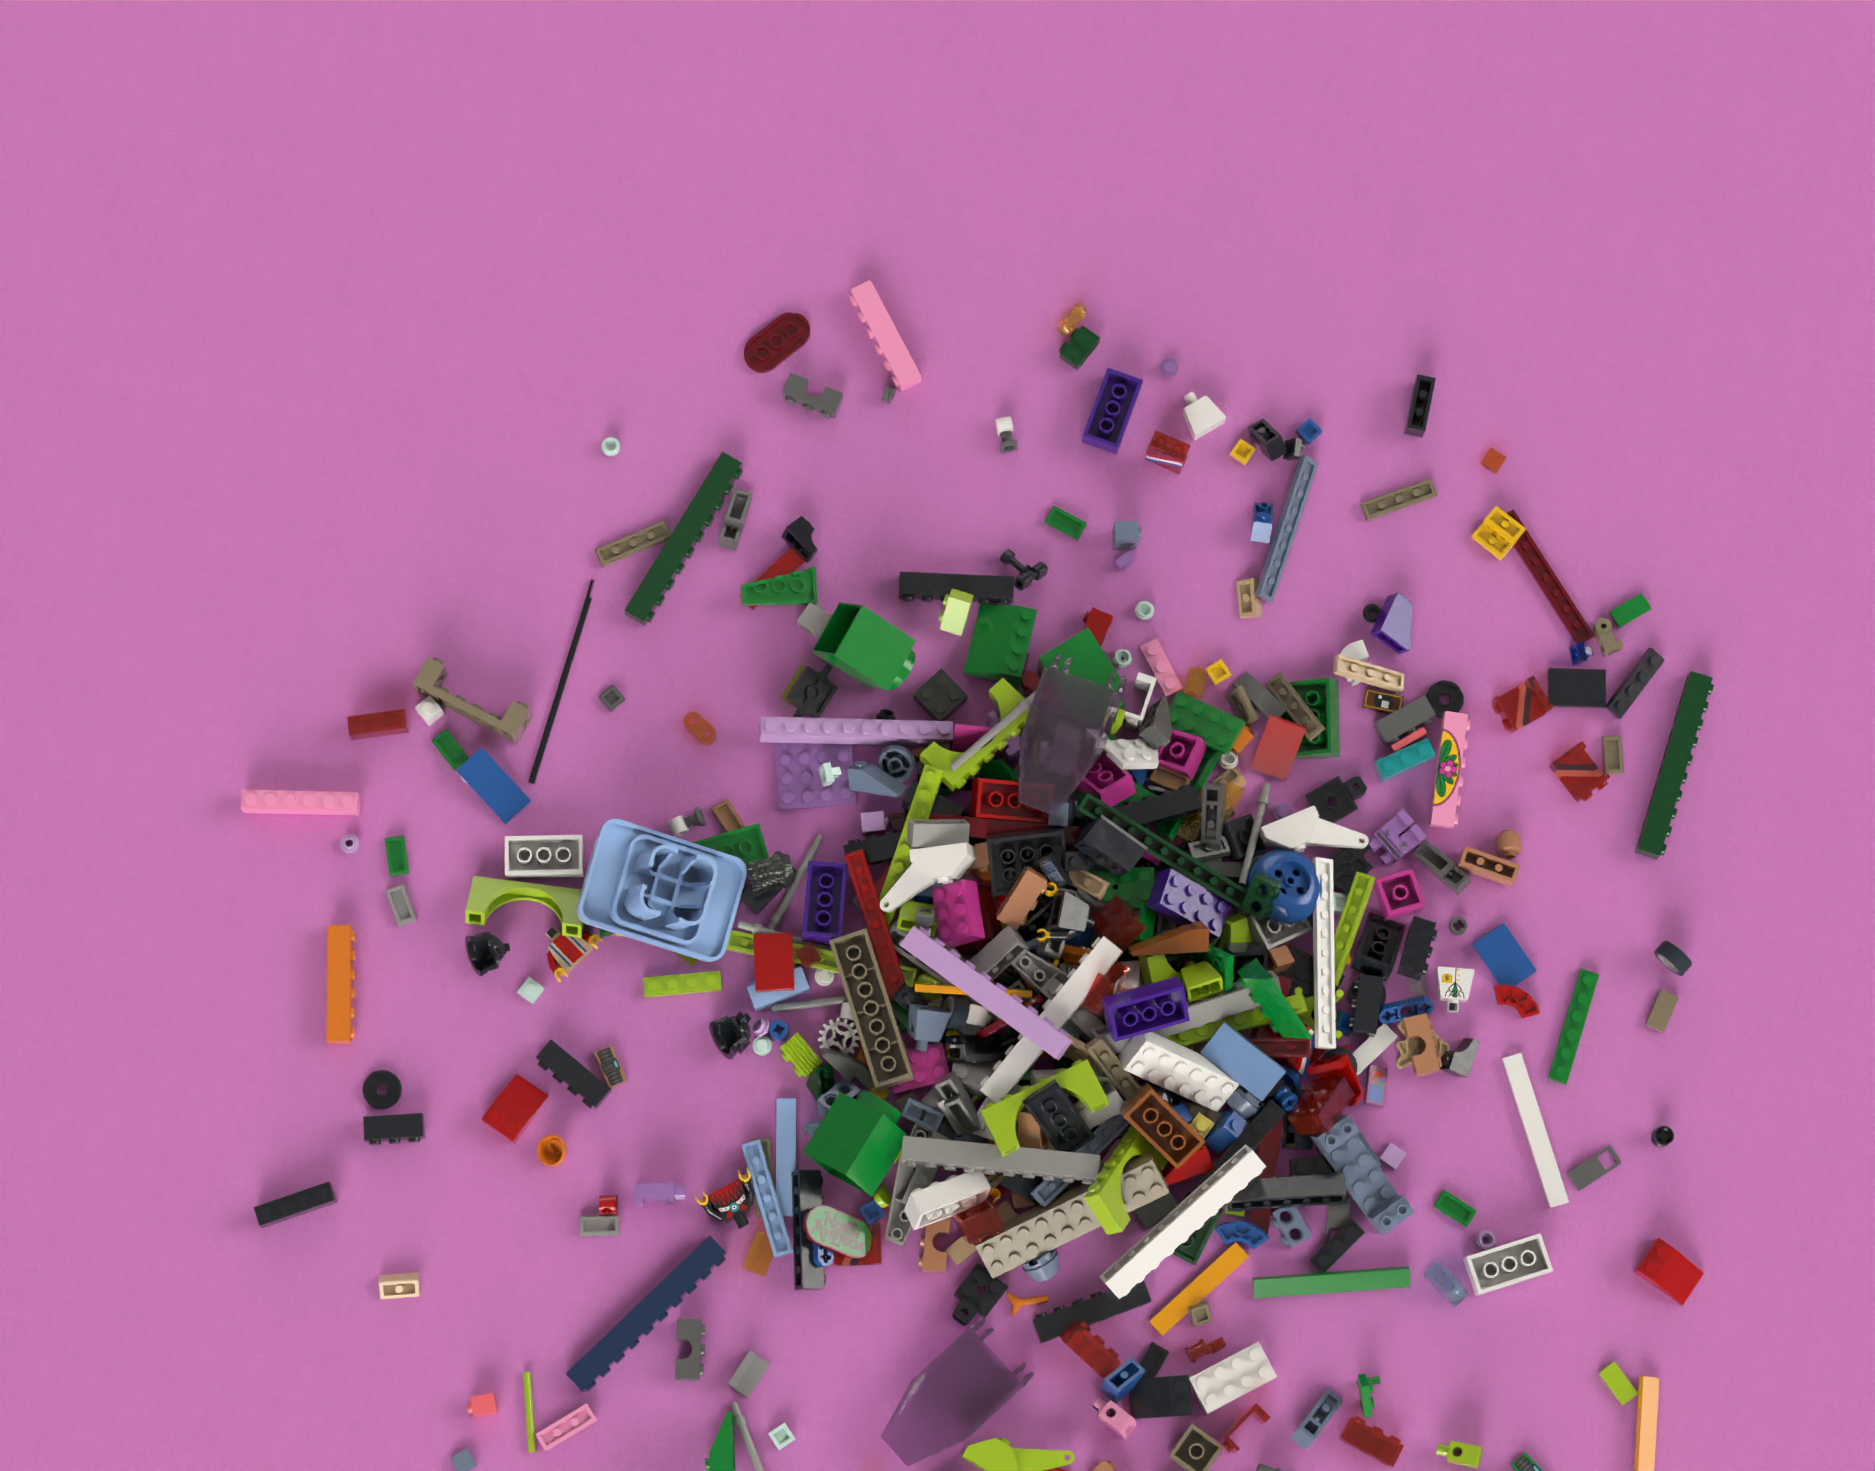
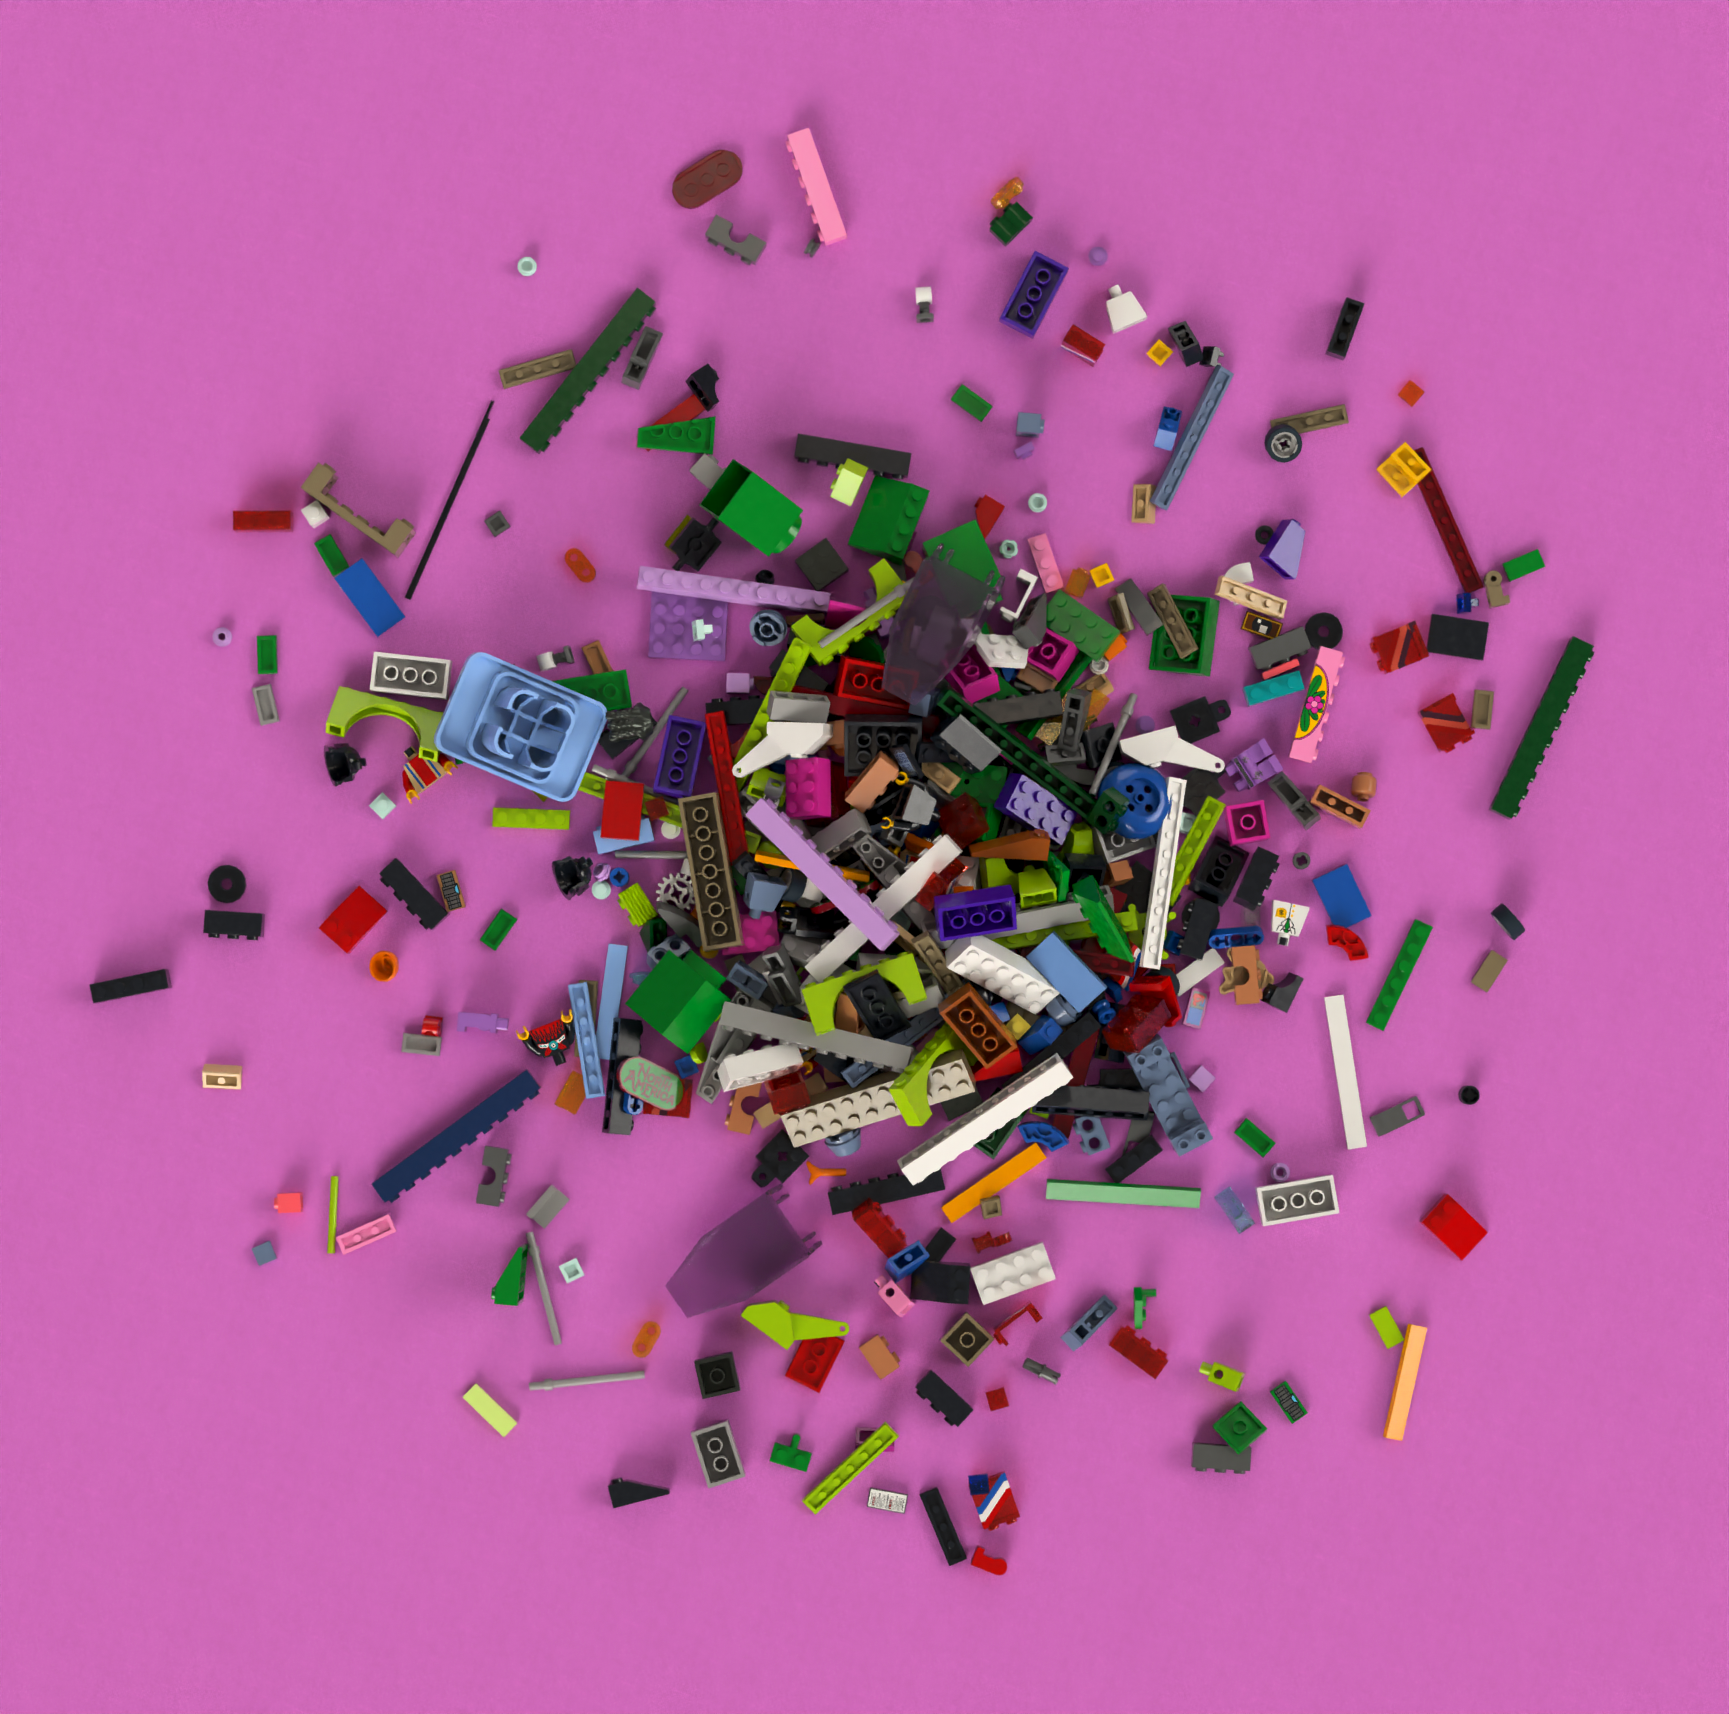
camera: 15 degrees right, 10 degrees up
(300, 802) = (178, 590): bright pink brick -> none
(340, 984) = (197, 775): orange brick -> none
(663, 1099) = (498, 929): none -> green tile
(873, 780) = (743, 642): sand blue slope -> none
(1026, 573) = (924, 450): black bar -> none
(1117, 721) = (992, 615): lime tile -> none
(1278, 747) = (1149, 660): red tile -> none
(1309, 431) = (1229, 340): blue plate -> none
(1369, 528) = (1280, 434): none -> wheel
(1634, 683) = (1515, 640): black plate -> none

